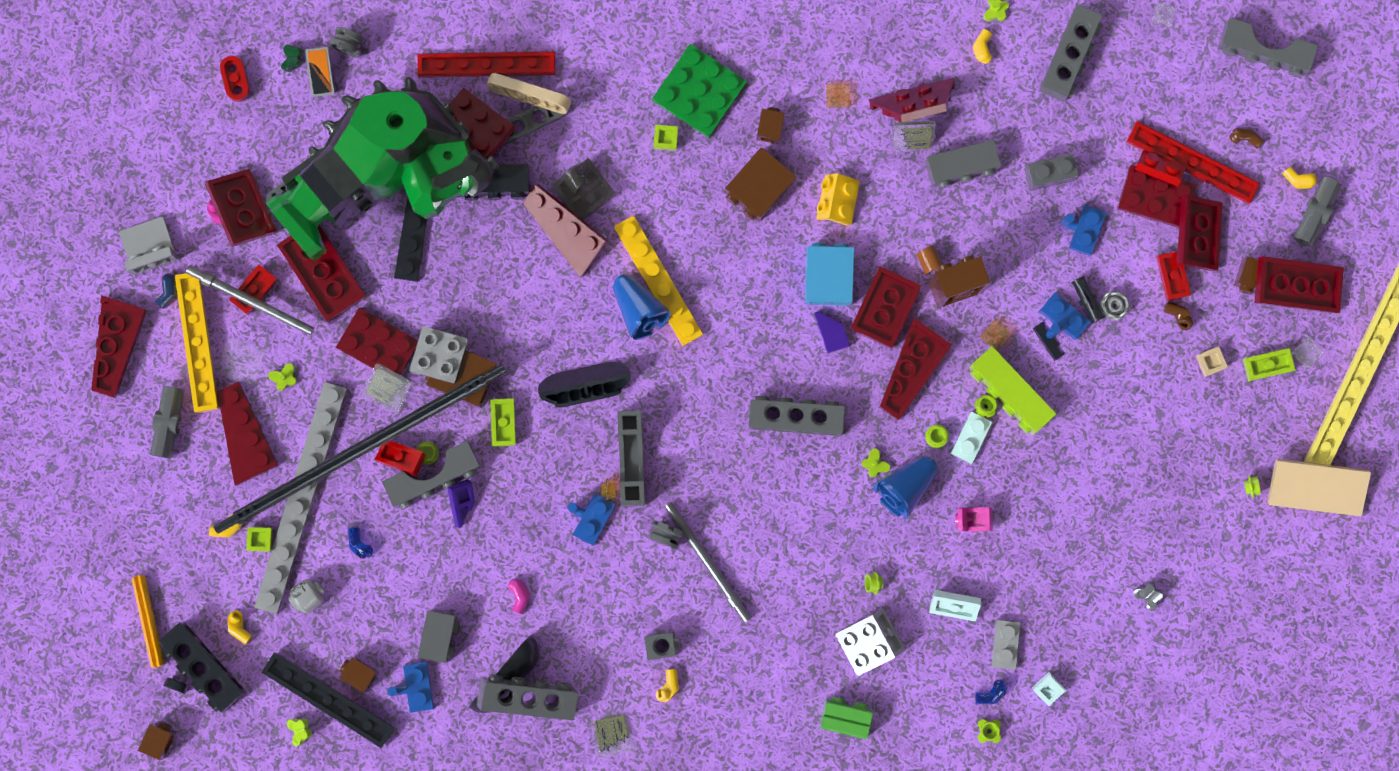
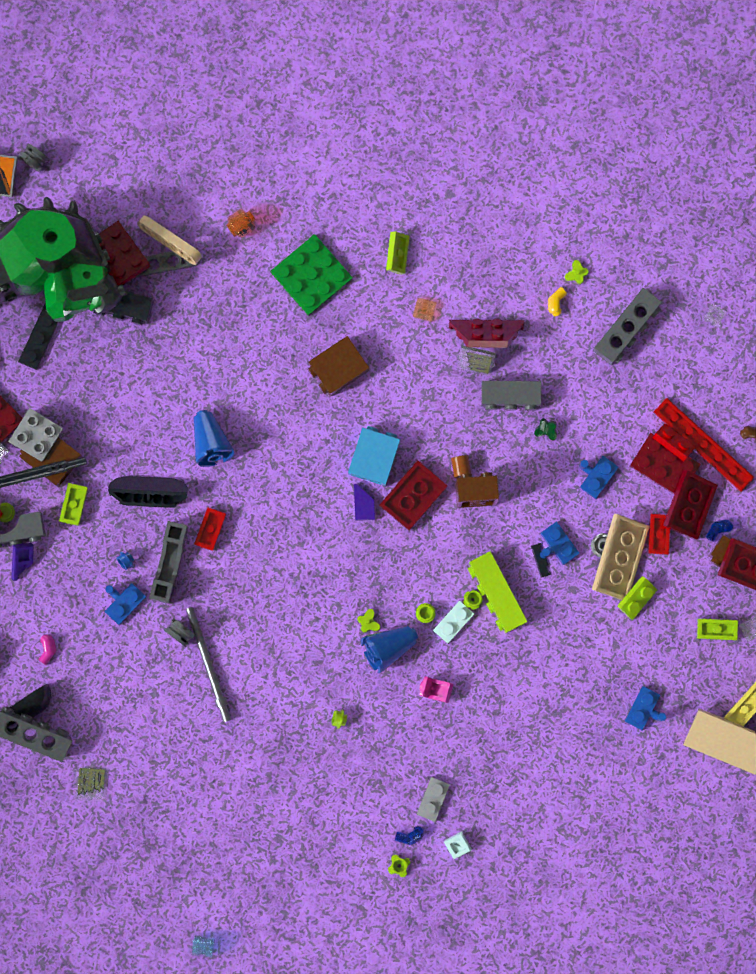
camera: 20 degrees right, 0 degrees up
(486, 63) = (142, 205): red tile -> none
(569, 232) = (170, 362): wing -> none
(580, 469) = (125, 560): none -> blue plate
(583, 189) = (192, 331): clear smoke plate -> none
(604, 53) = (241, 223): none -> clear orange head
(608, 489) = (144, 582): clear yellow plate -> none
(651, 651) = (142, 718): dark grey brick -> none
(658, 280) = (233, 422): yellow plate -> none
(665, 137) = (272, 306): lime plate -> none
(666, 408) = (210, 529): none -> red plate
(670, 688) = (148, 758): yellow arm -> none
(770, 125) = (361, 319): reddish brown brick -> none
(790, 39) = (397, 252): none -> lime plate
(832, 426) = (287, 548): dark grey brick -> none
(838, 199) = (400, 395): yellow bracket -> none
(845, 718) = (284, 822): bright green brick -> none
(870, 642) = (322, 766): bracket -> none
(915, 364) = (424, 549): dark red wing -> none
(955, 605) = (400, 755): light aqua plate -> none
(995, 335) = (497, 543): clear yellow tile -> none
(1013, 191) = (546, 428): none -> dark green piece
(1051, 172) = (581, 421): dark grey brick -> none
(1094, 314) = (585, 548): black pin -> none
(1138, 313) = (620, 557): none -> tan tile
(1150, 594) = (563, 790): piece -> none
(1169, 353) = (637, 598): none -> lime plate
(1181, 315) = (656, 567): reddish brown arm -> none
(1211, 361) = (670, 614): tan plate -> none
(1212, 476) = (643, 709): none -> blue plate
(1237, 249) = (719, 527): none -> clear blue arm
(1252, 486) = (674, 726): lime plate -> none

